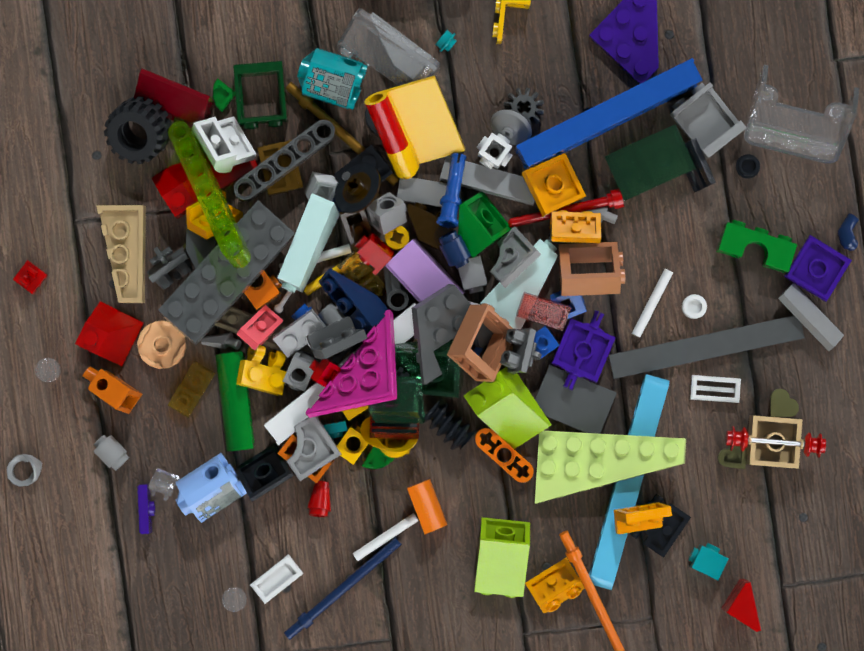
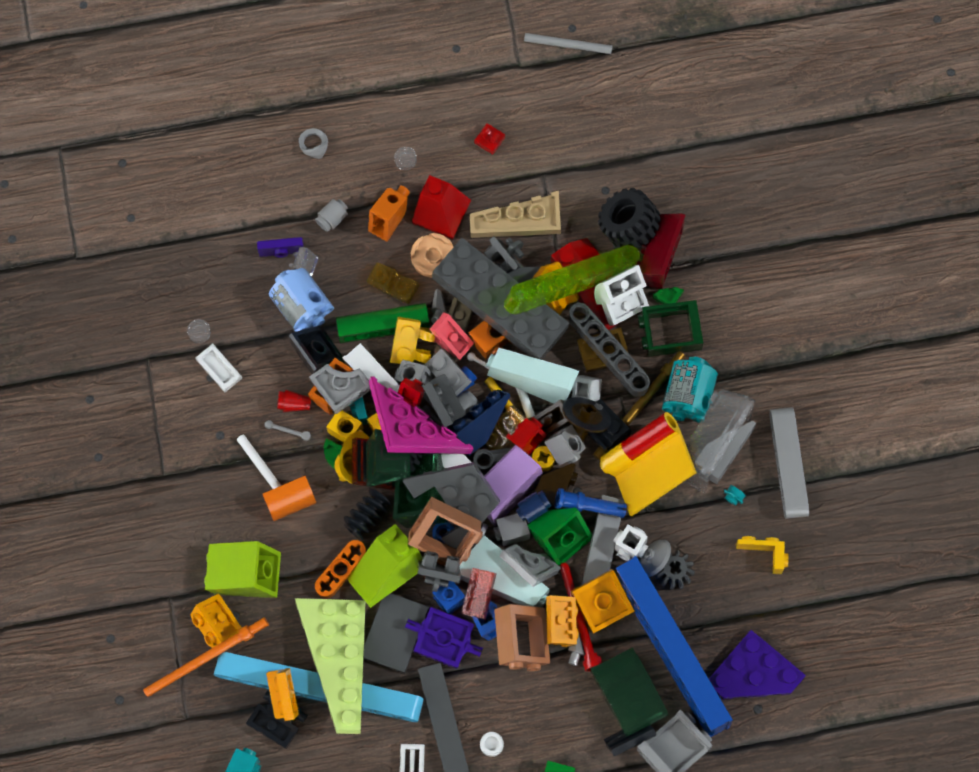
camera: 90 degrees right, 15 degrees down
(305, 620) = (181, 396): dark blue bar -> none
(356, 488) = (305, 435): none -> light grey hinge
(421, 191) = (589, 477): light grey tile -> none
(652, 303) = (493, 703): white bar -> none

